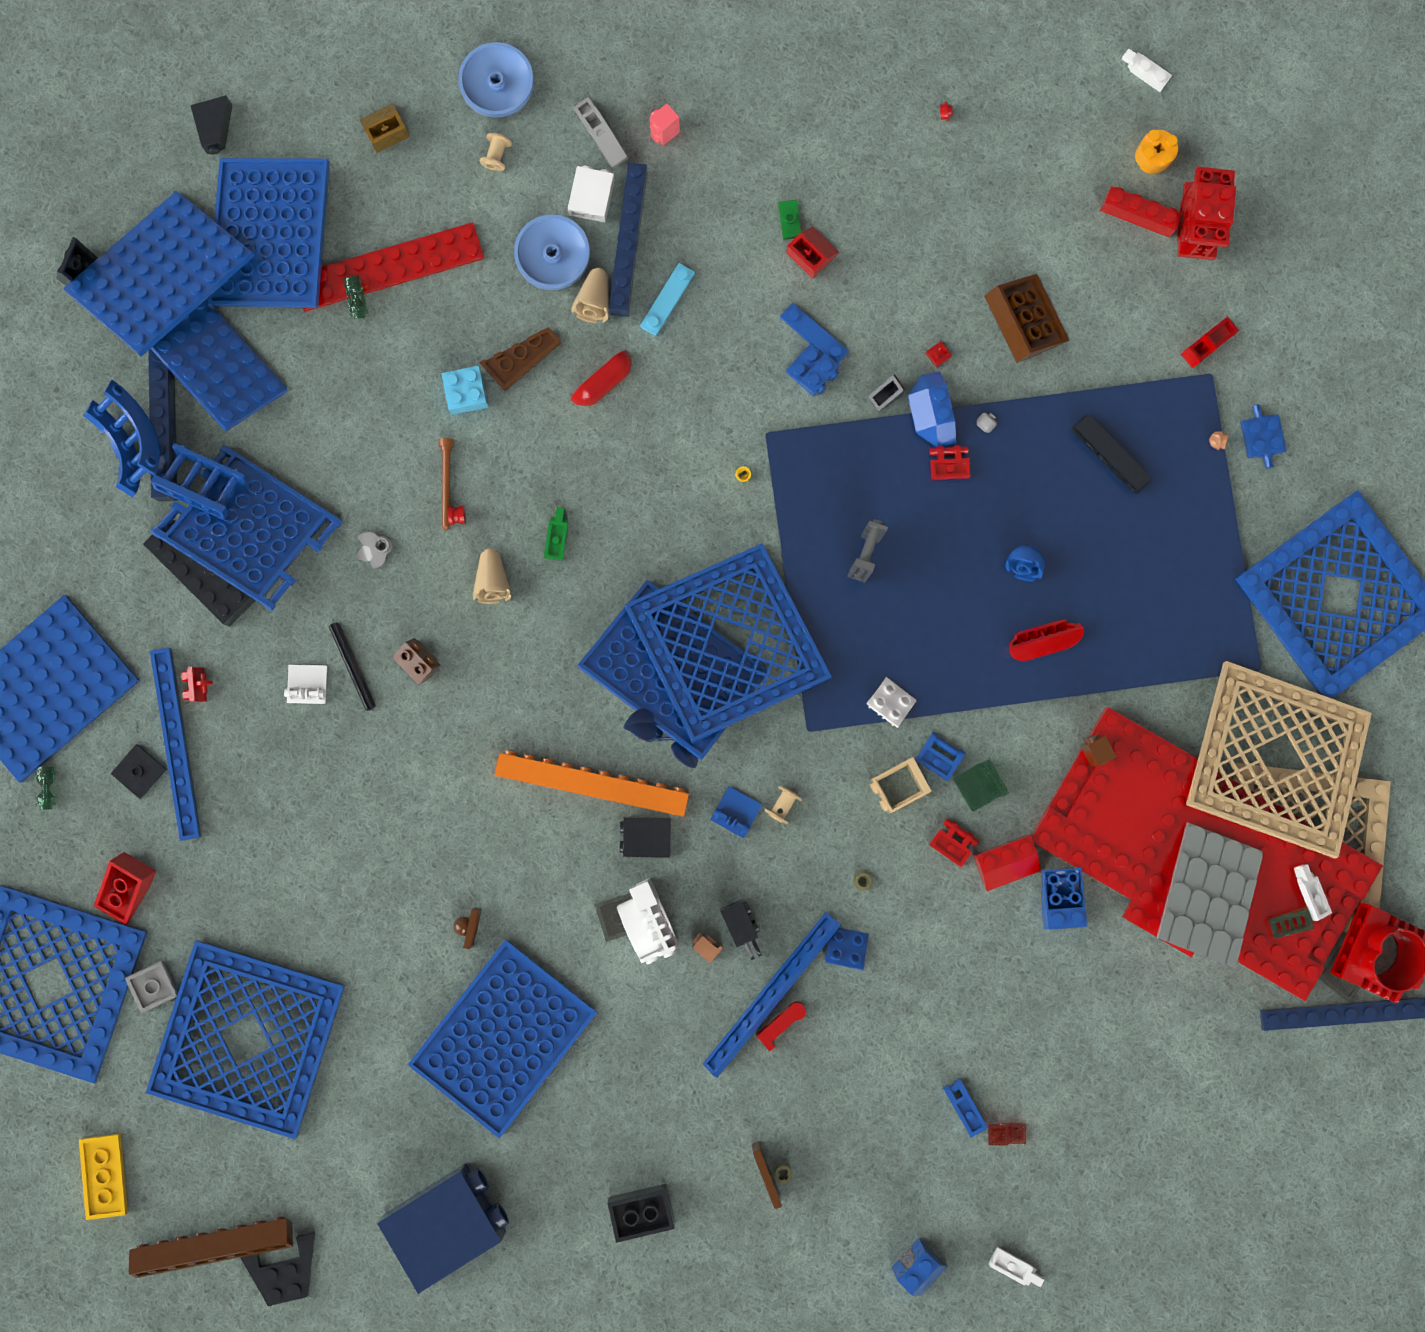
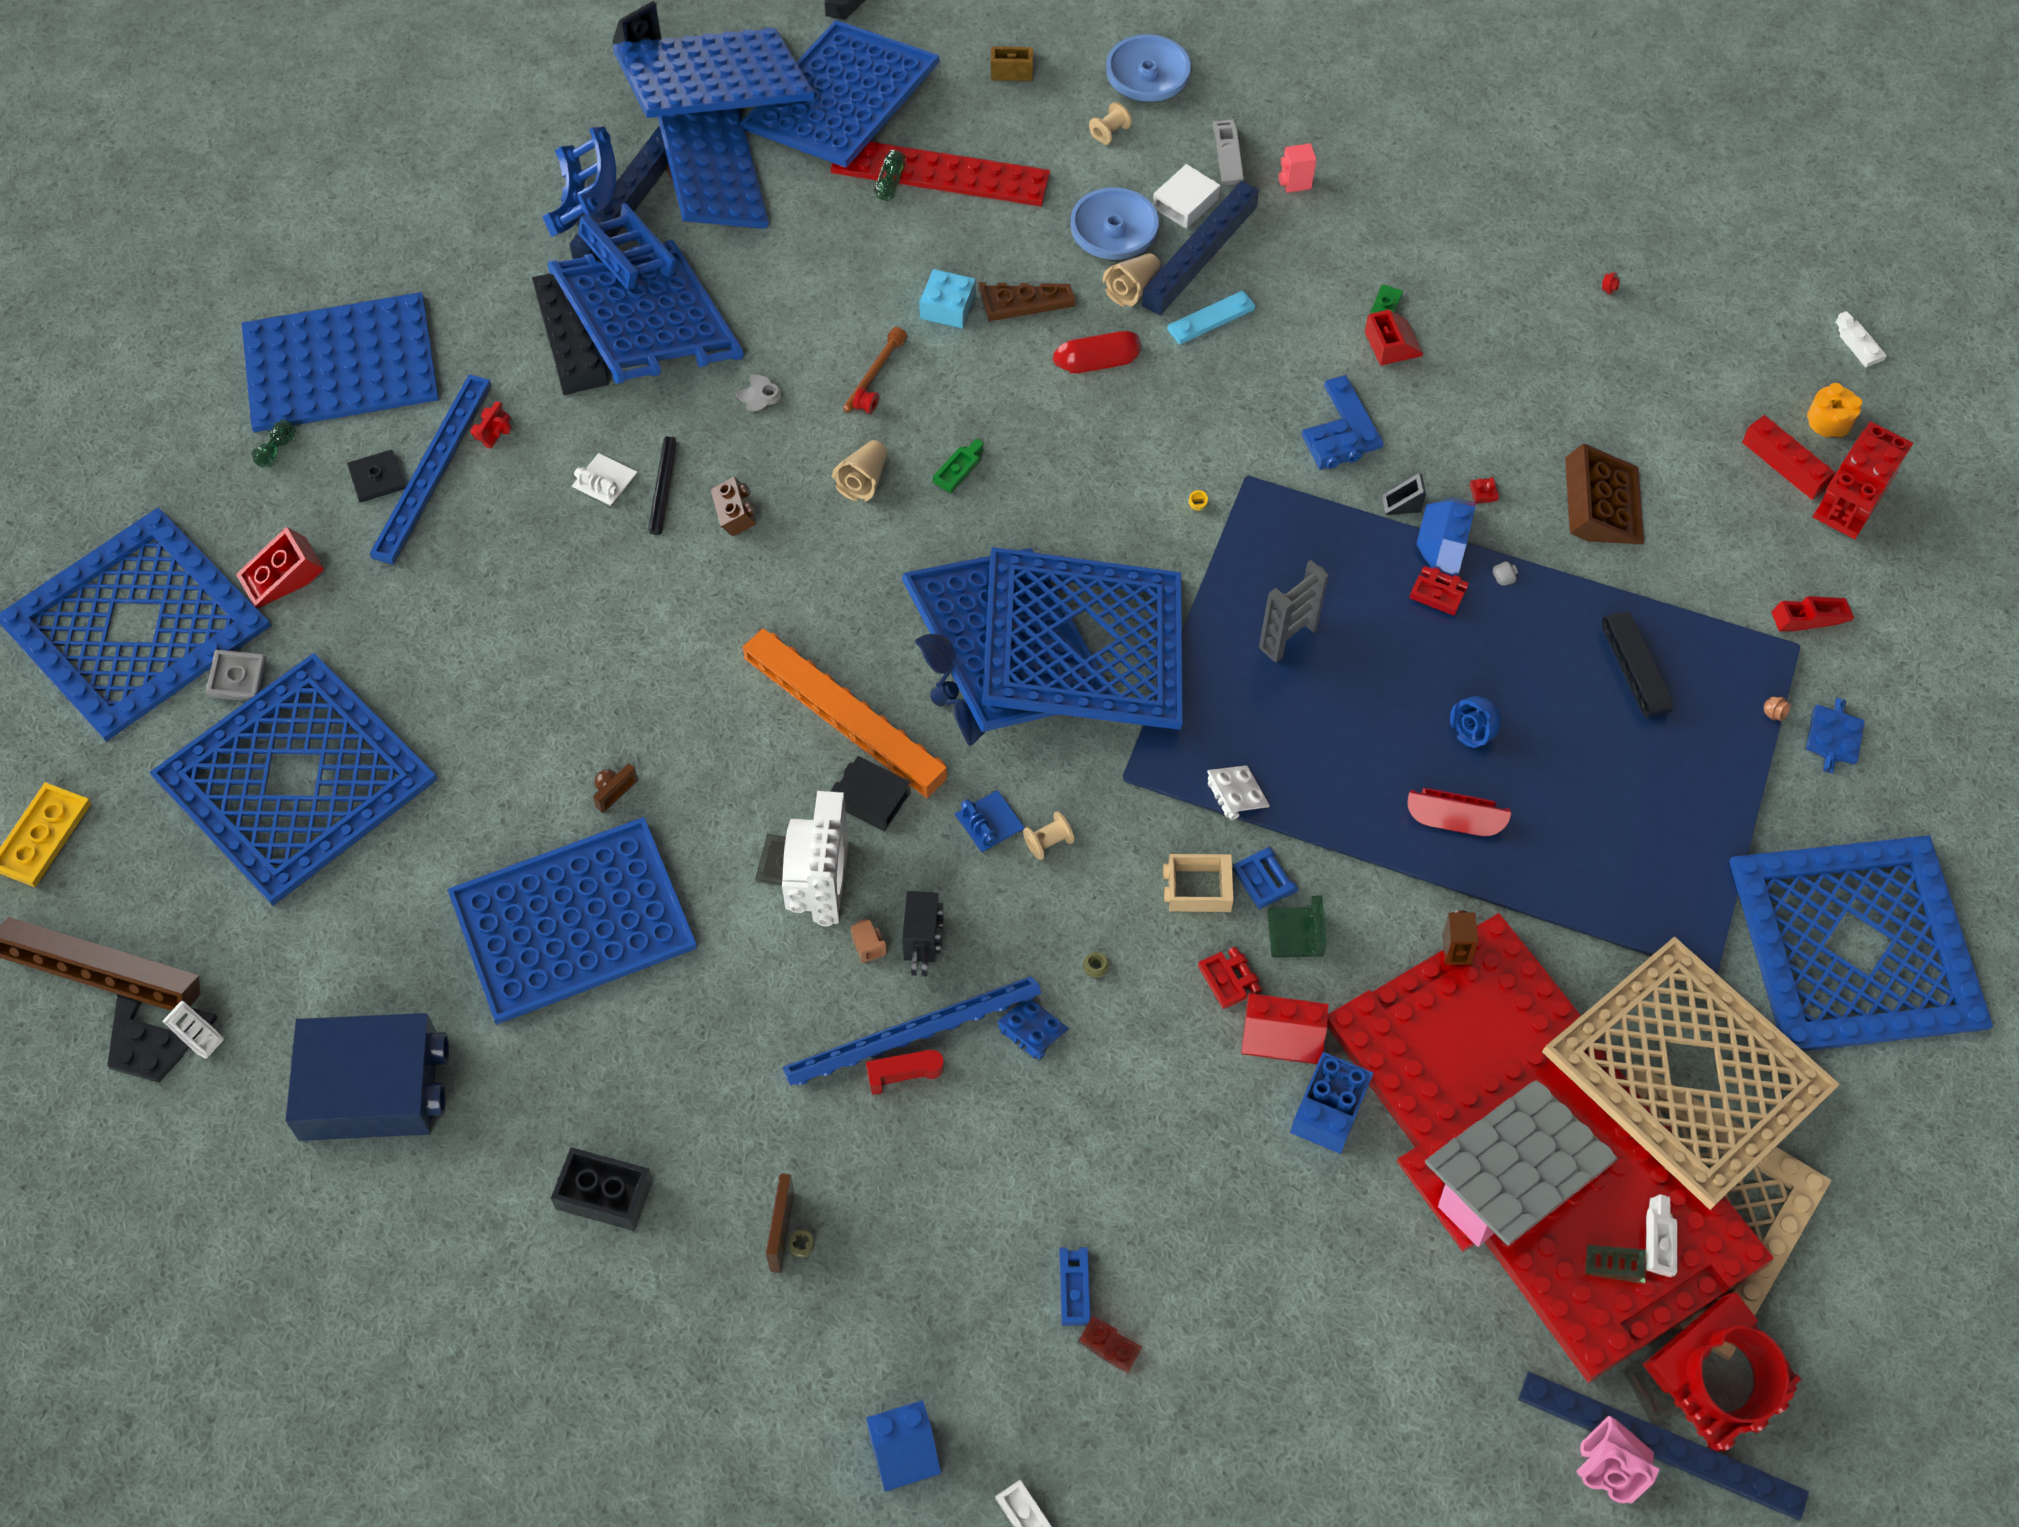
camera: 30 degrees right, 25 degrees down
(318, 1257) = (205, 1042): none -> white slope
(1341, 1044) = (1617, 1462): none -> bright pink piece

